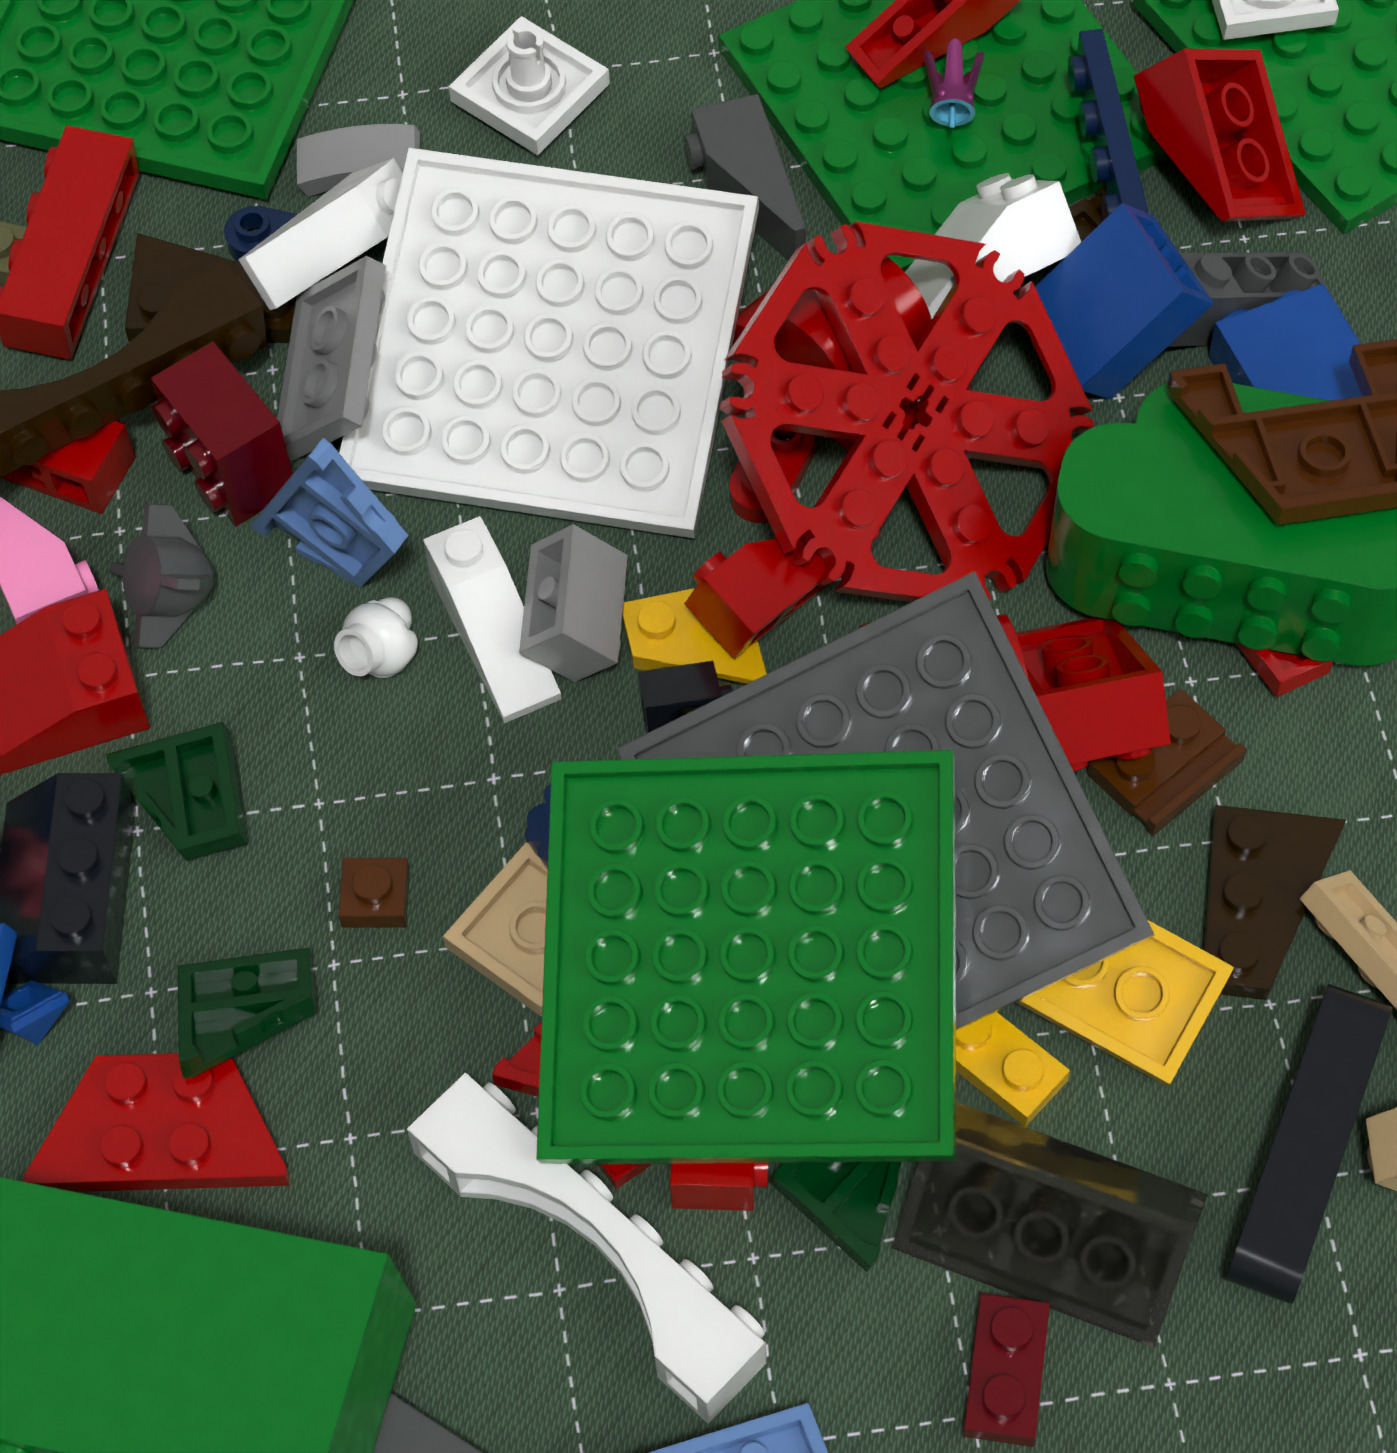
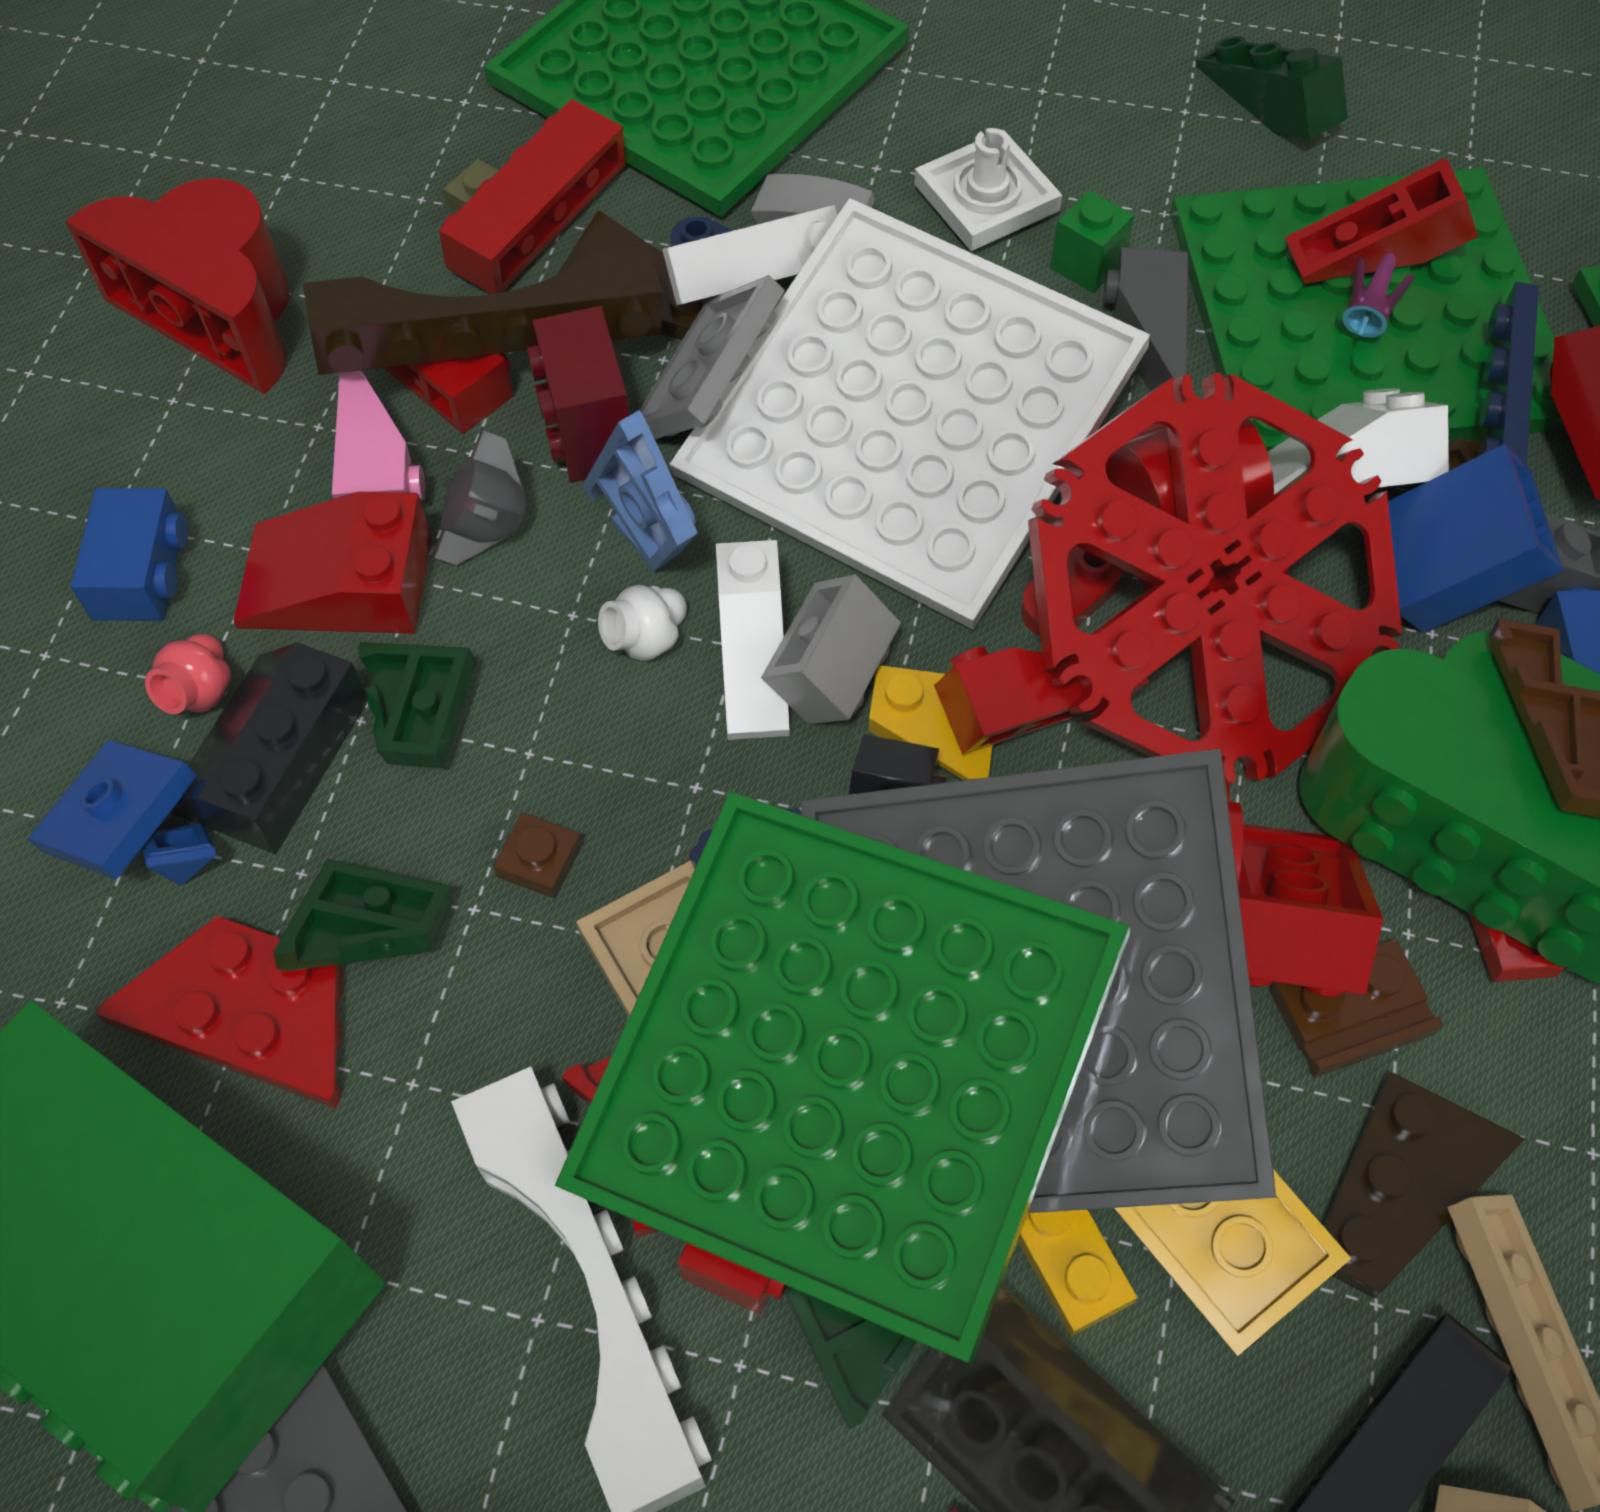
camera: 20 degrees right, 0 degrees up
(656, 109) = (1090, 240): none -> green brick

